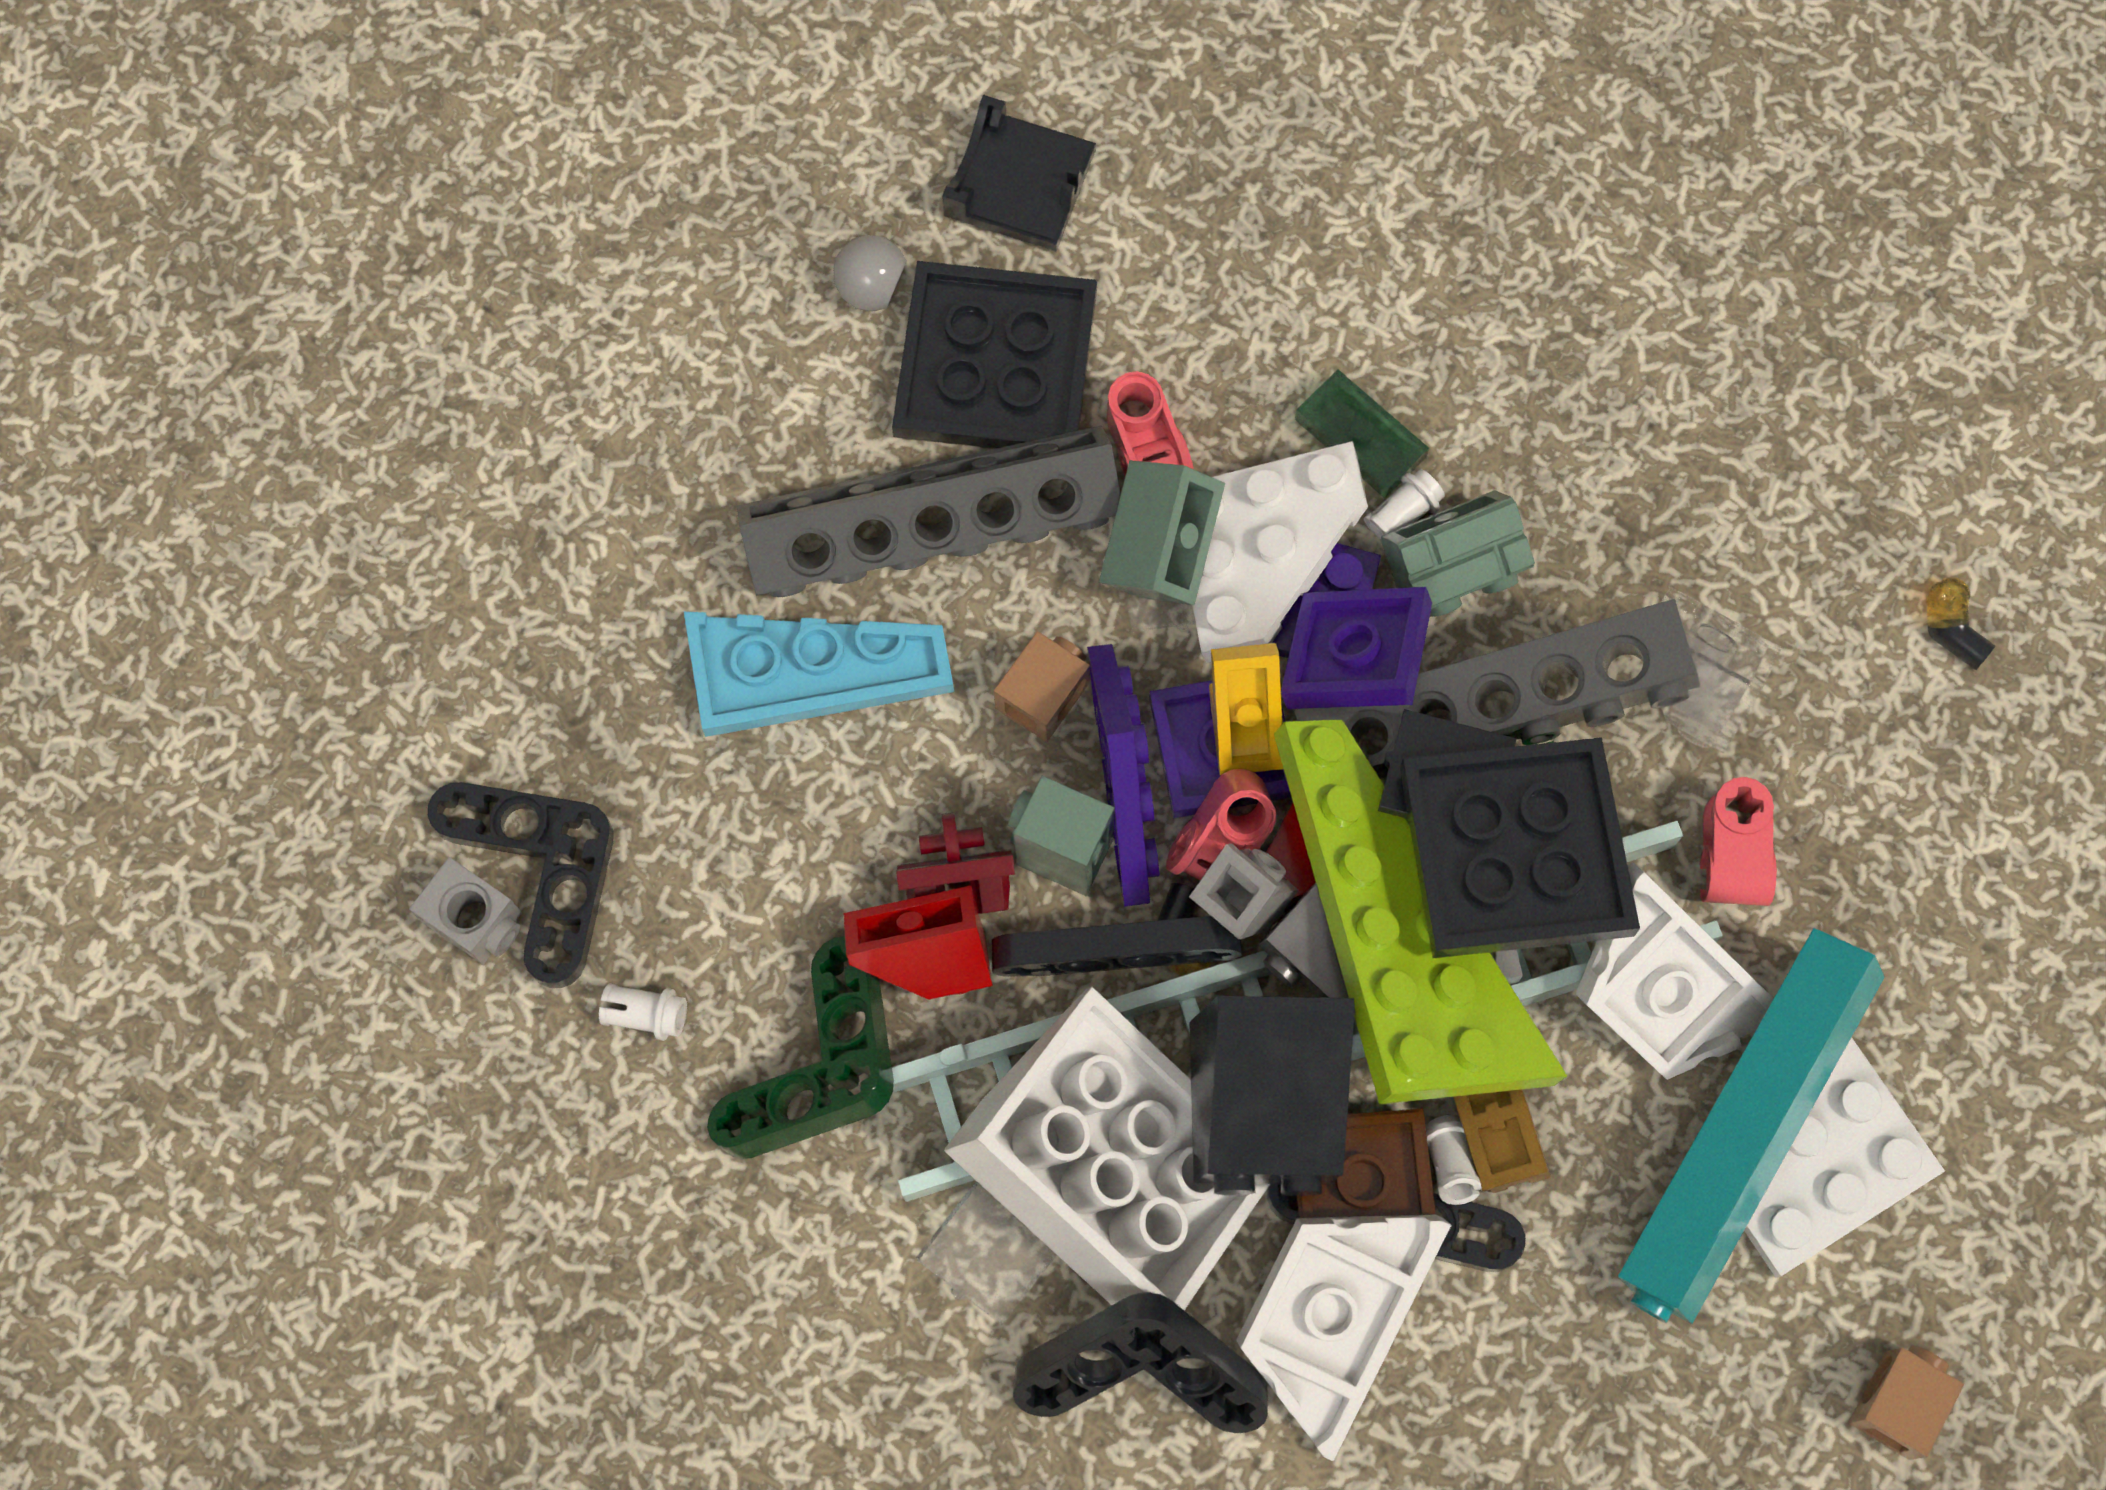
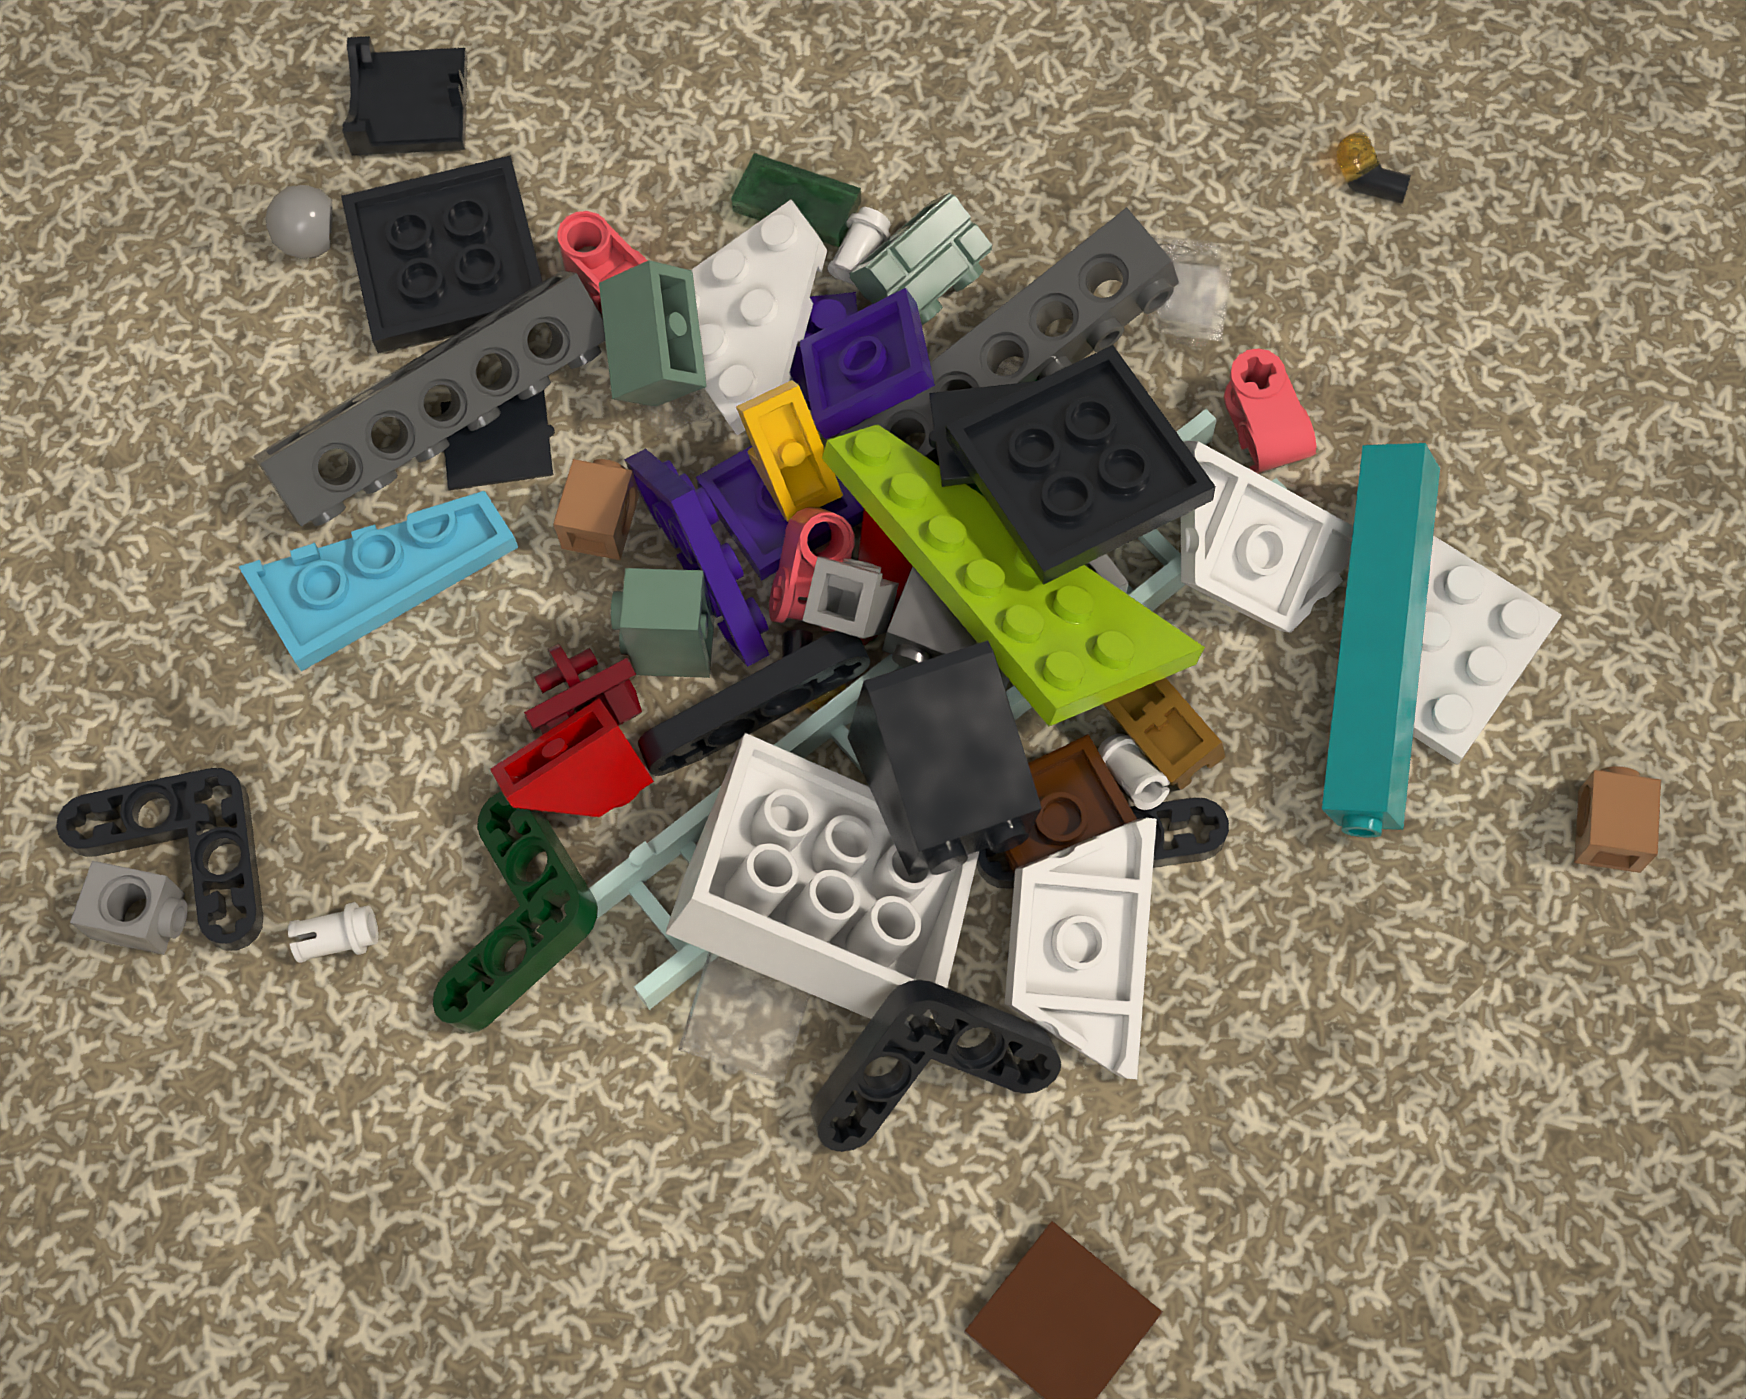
camera: 20 degrees left, 5 degrees down
(977, 586) = (504, 450): none -> black piece

